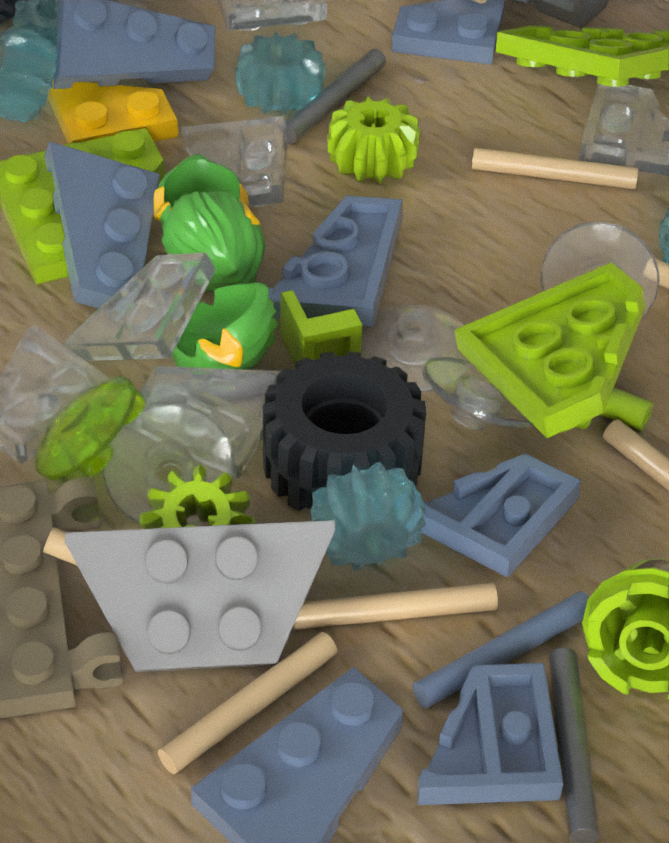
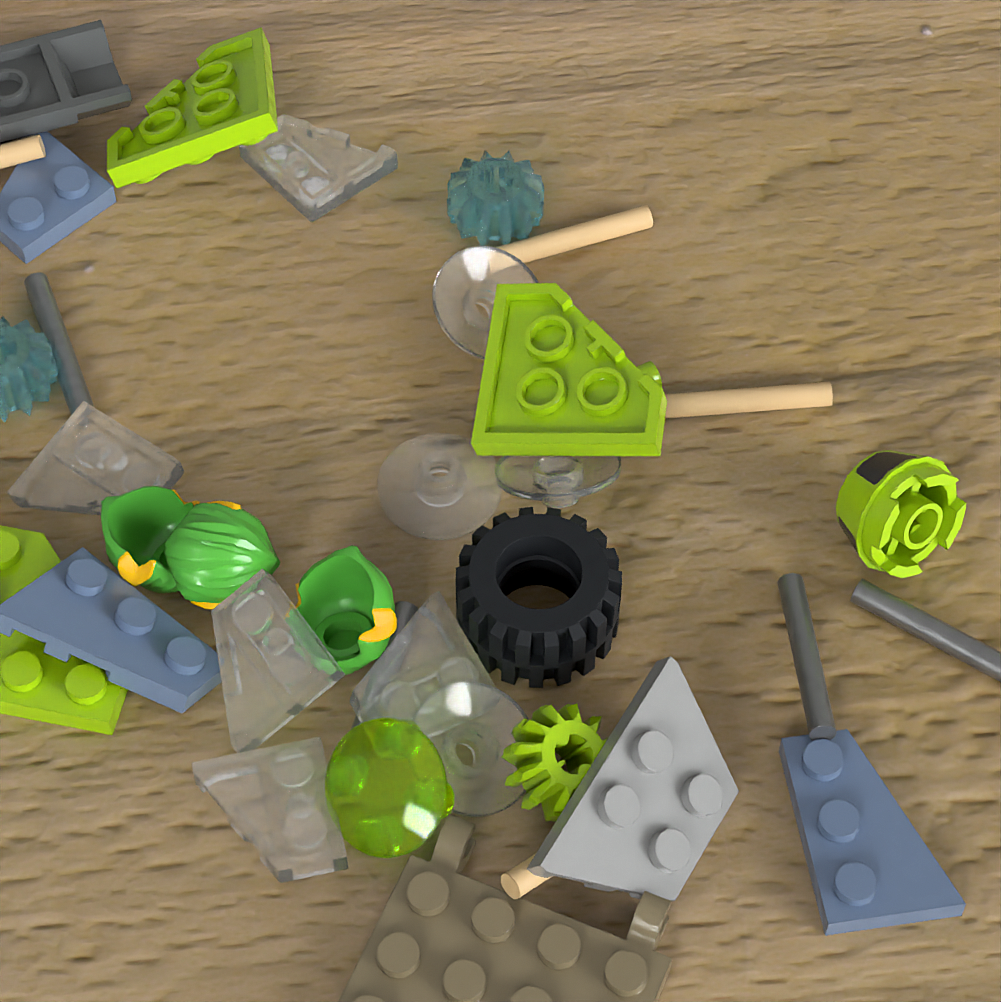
camera: 55 degrees left, 10 degrees up
(247, 703) = (758, 837): tan bar -> none
(317, 335) = (395, 549): lime panel -> none
(346, 261) = (313, 474): sand blue wing -> none
(373, 139) = (166, 353): lime gear -> none
(373, 515) = (648, 628): clear light blue gear -> none
(397, 606) = (736, 657): tan bar -> none
(450, 645) = (806, 657): none -> flat silver bar
(496, 741) = (915, 683): sand blue wing -> none
(501, 512) = (689, 541): sand blue wing -> none
(501, 649) = (823, 616): sand blue bar -> none
(555, 168) = (306, 247): tan bar -> none

